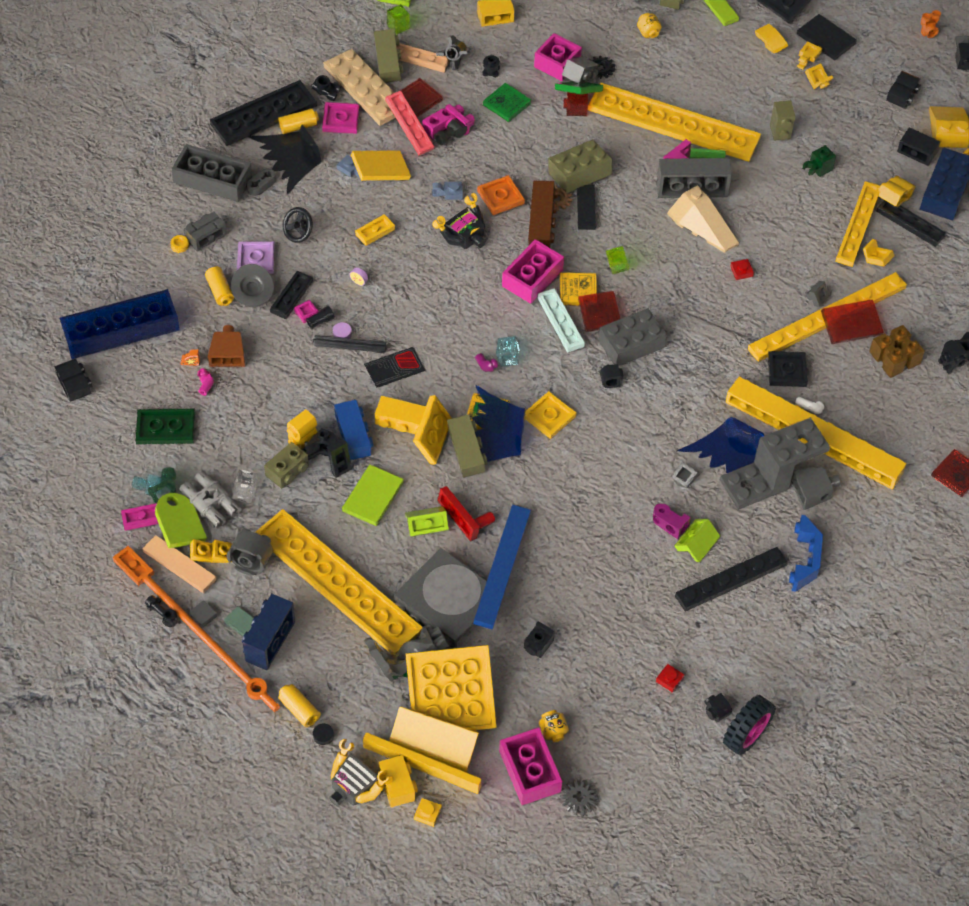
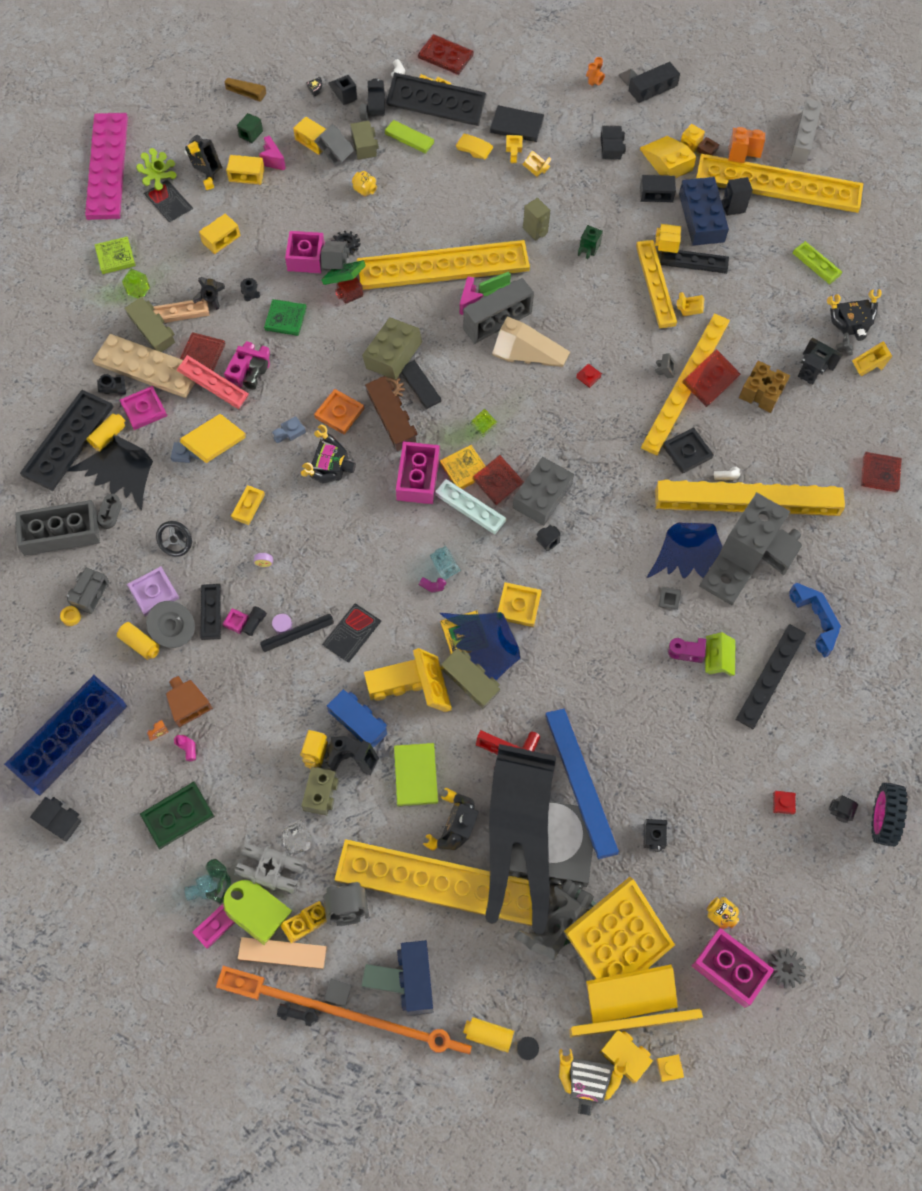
camera: 30 degrees left, 10 degrees up
(379, 544) = (458, 824): none -> black torso
(427, 521) = (478, 772): lime panel -> none
(434, 562) = (520, 817): none -> black flag

